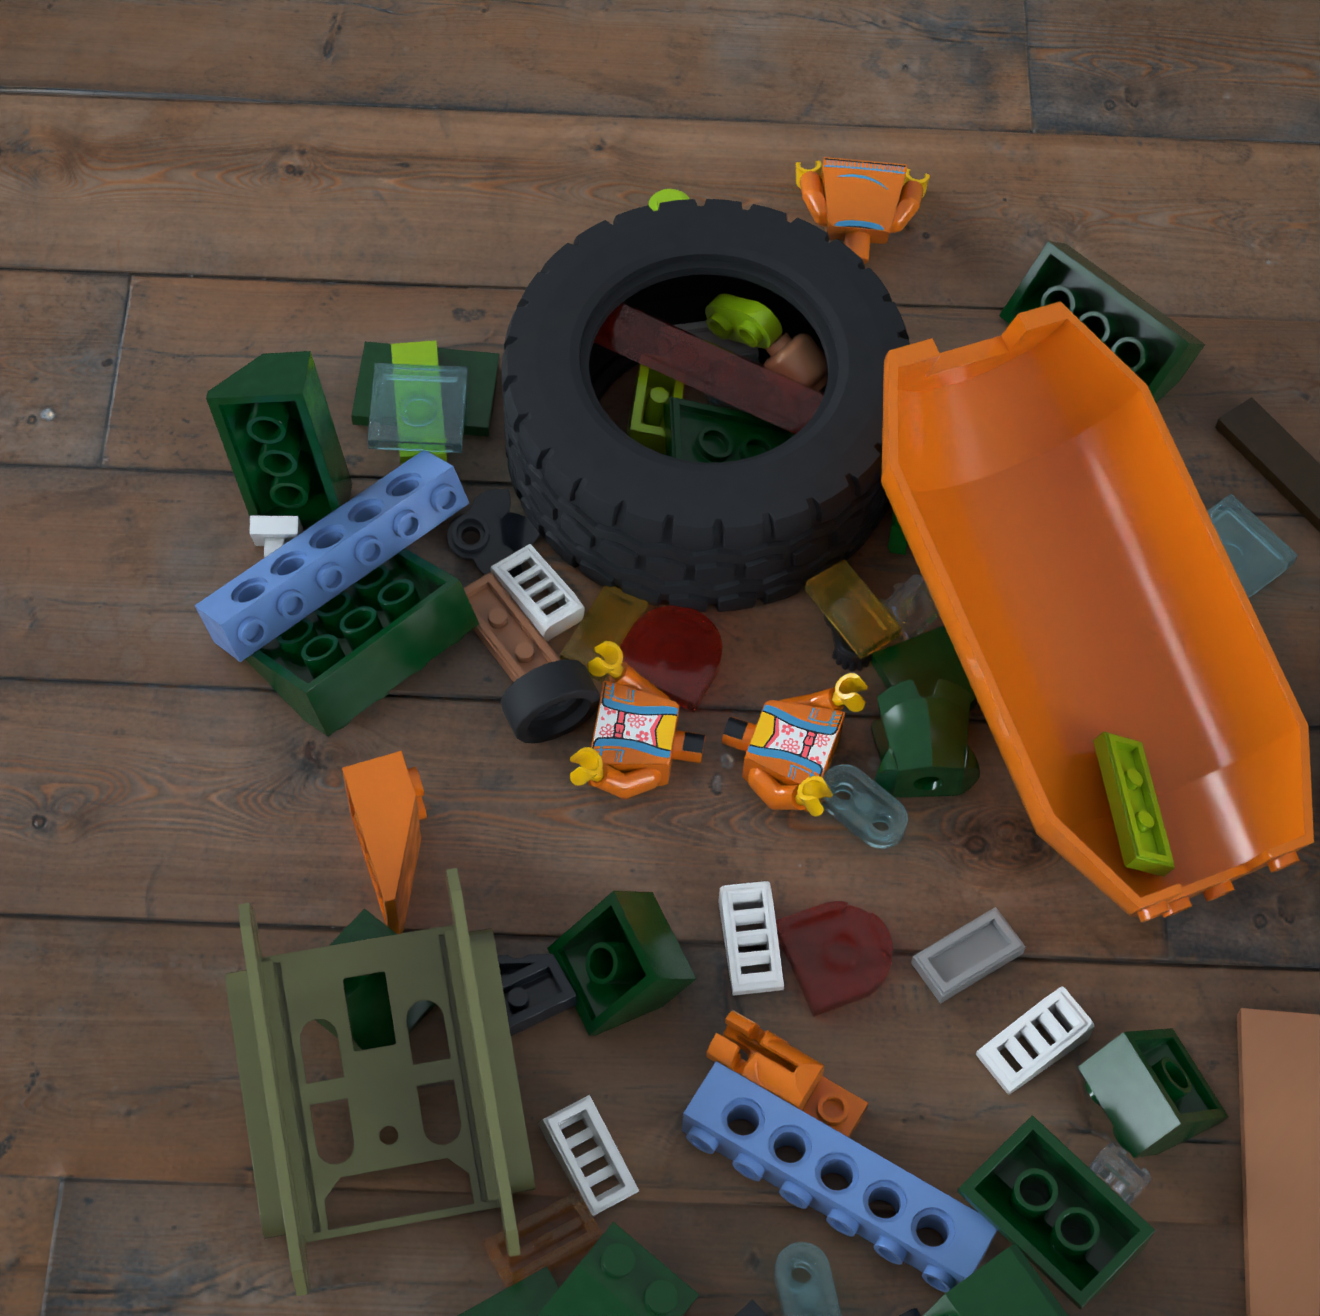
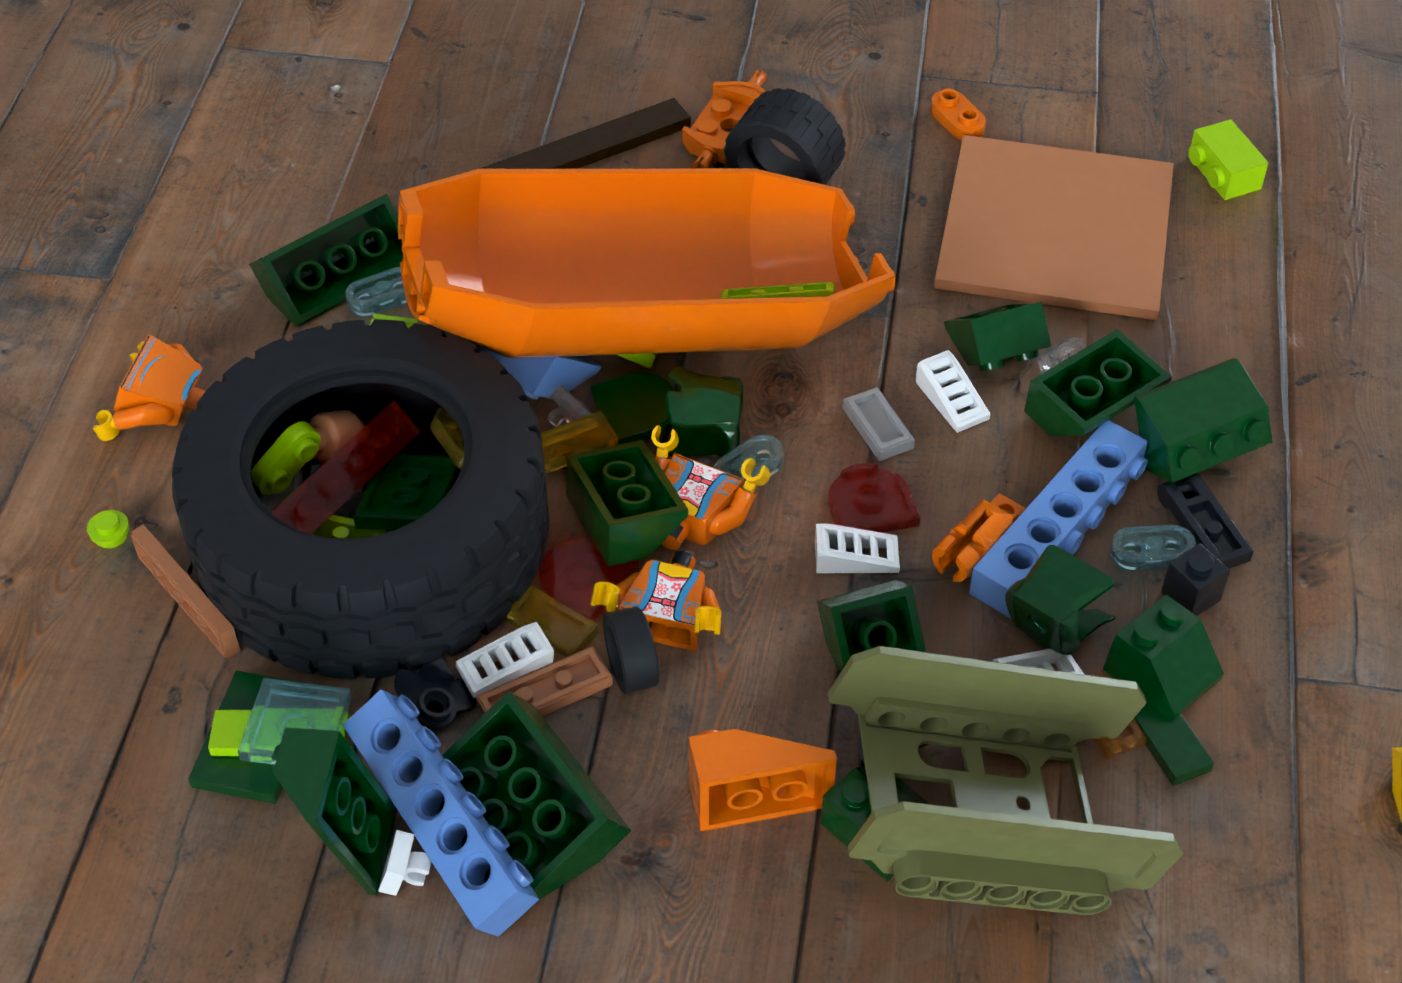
camera: 80 degrees left, 10 degrees down
(676, 1167) = (1052, 601): none -> dark green piece
(759, 662) = (623, 500): none -> dark green slope

